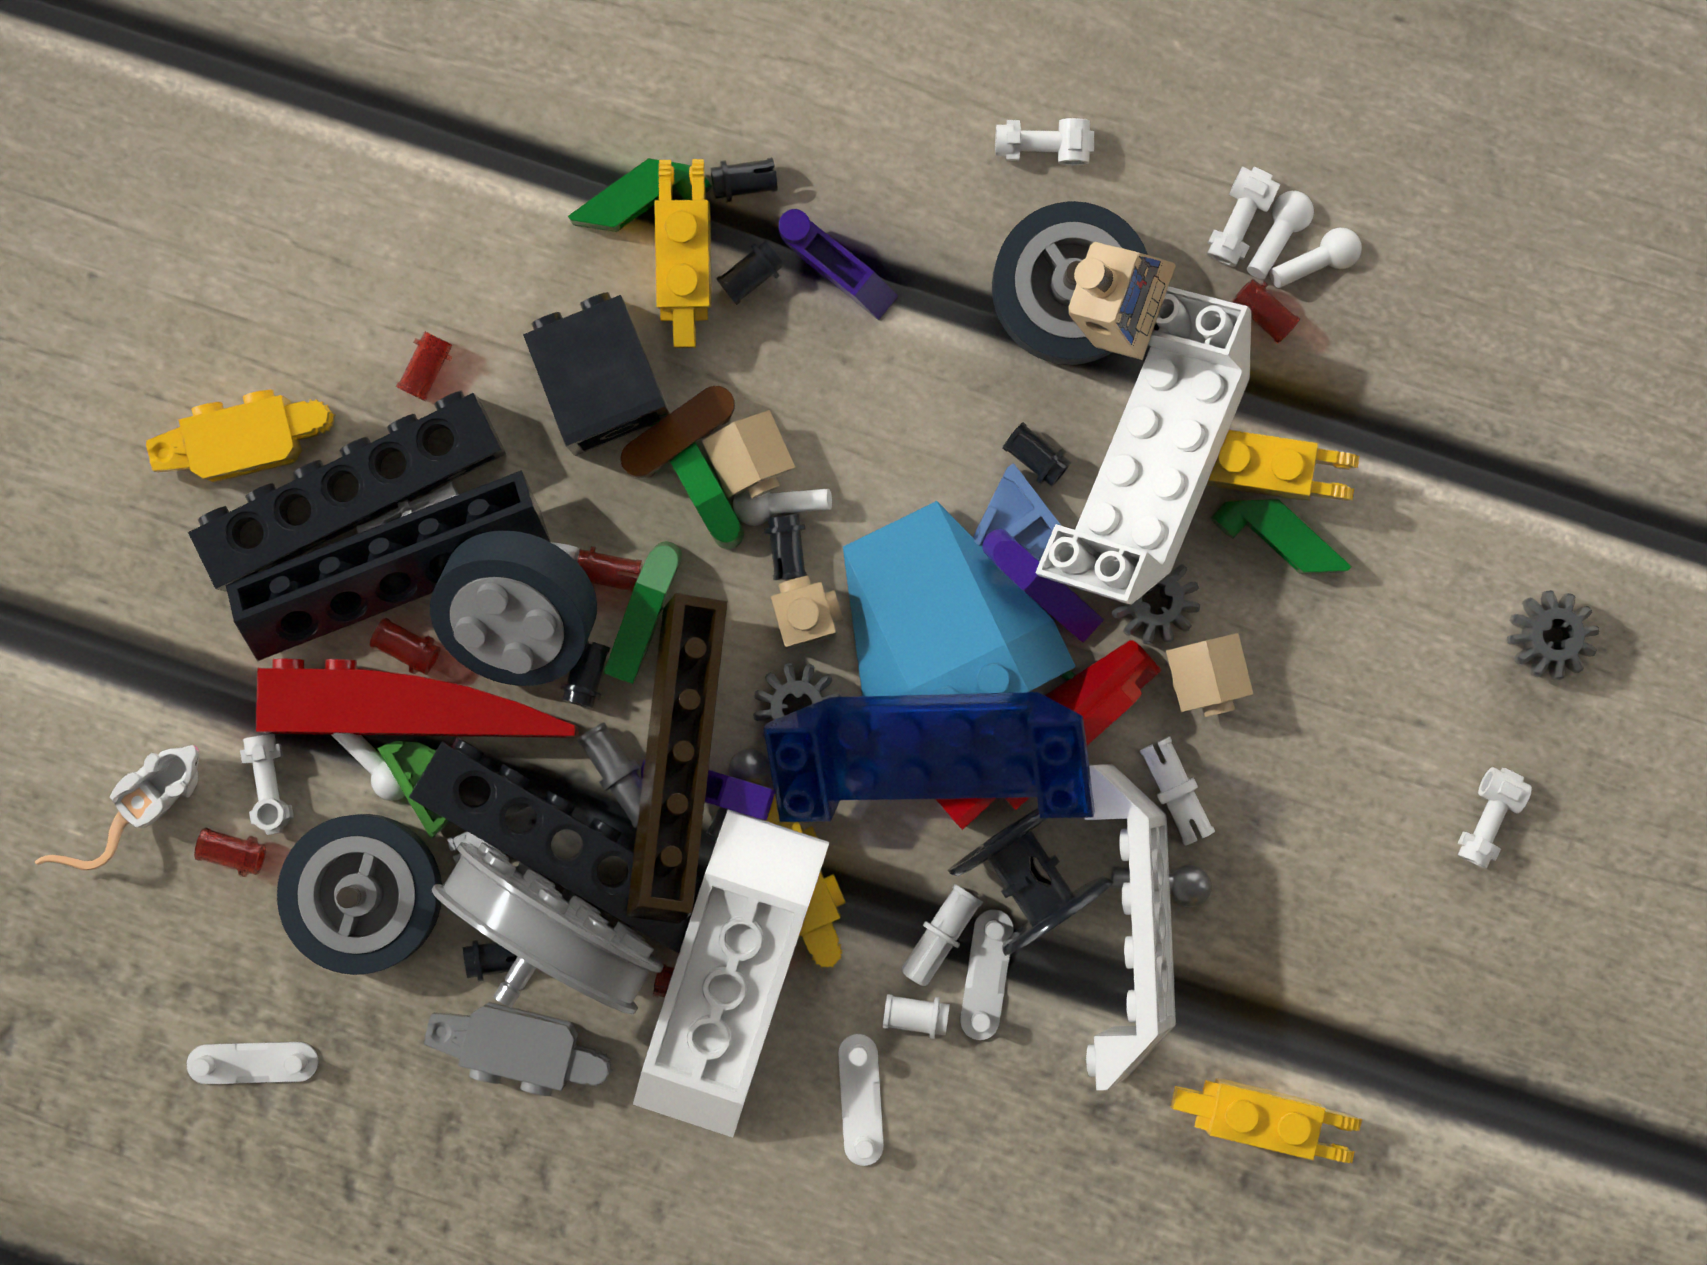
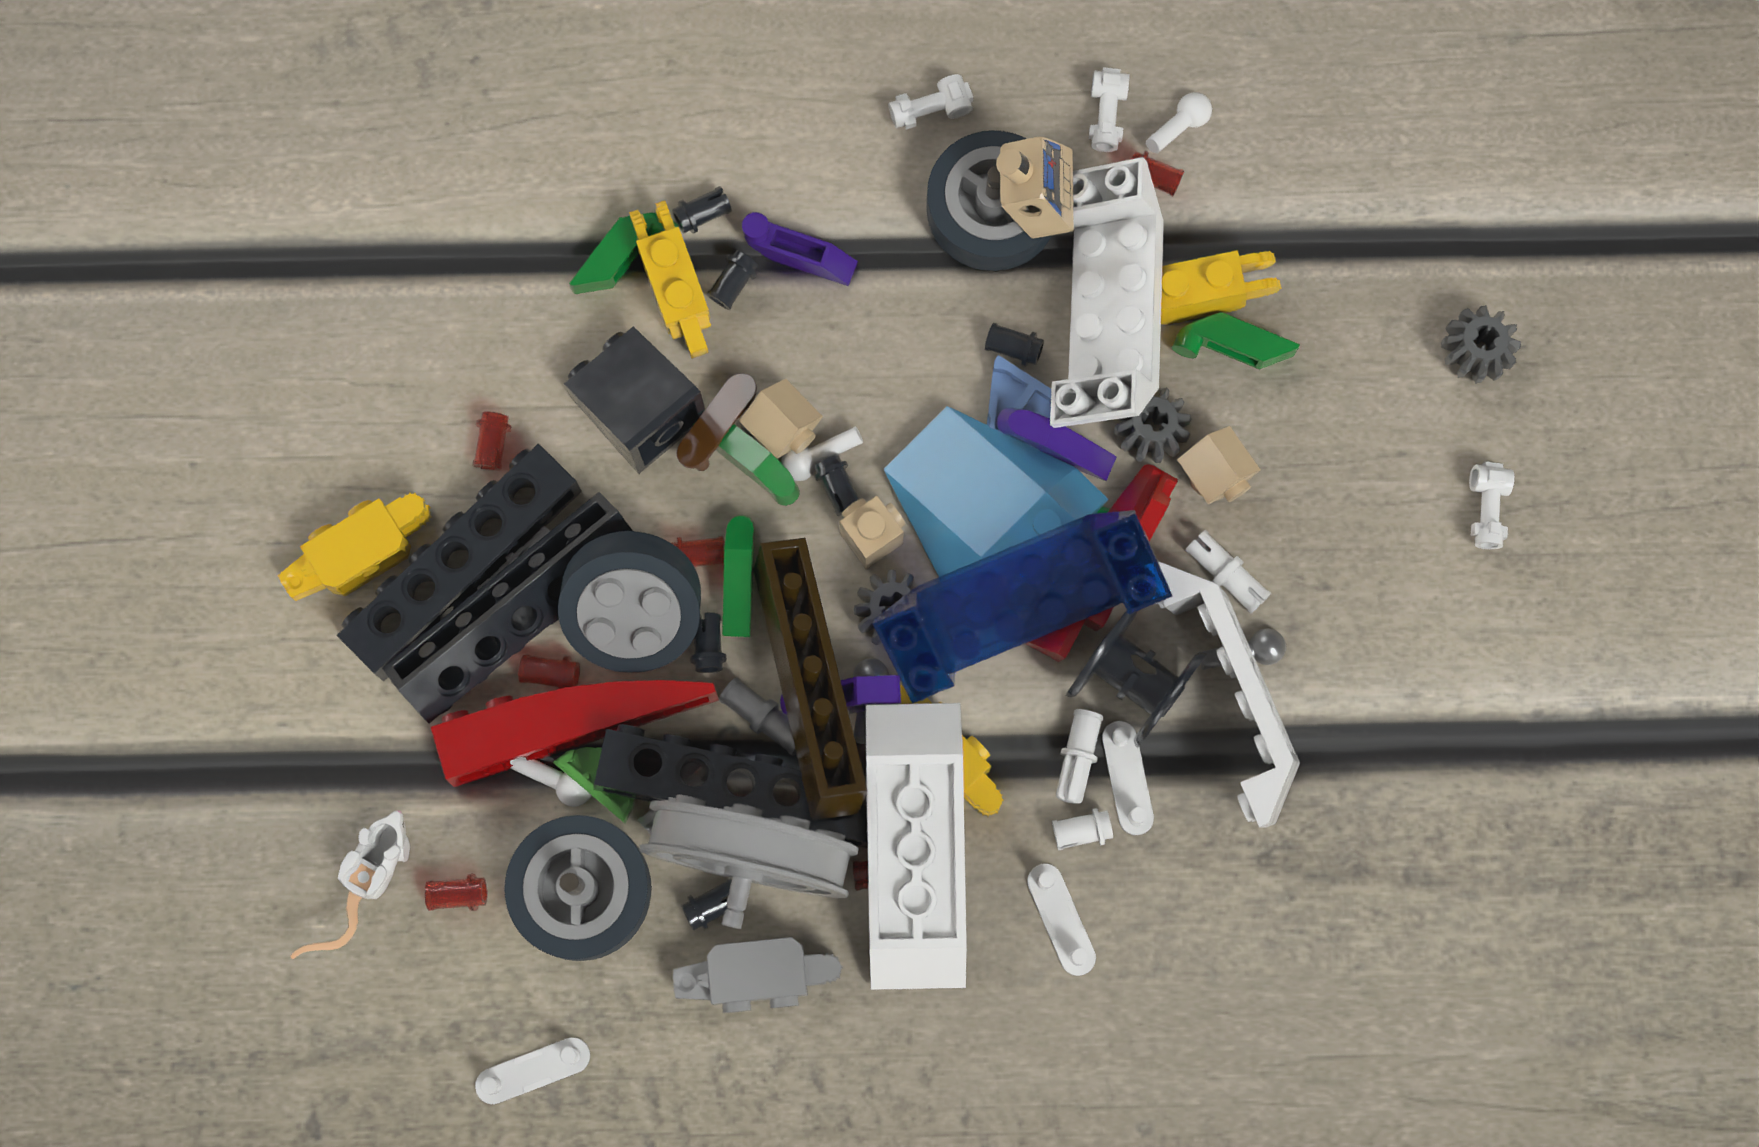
camera: 20 degrees left, 10 degrees down
(269, 812) = (478, 847): white bar -> none
(1264, 1118) = (1404, 812): yellow hinge -> none
(1291, 214) = (1145, 96): white bar -> none

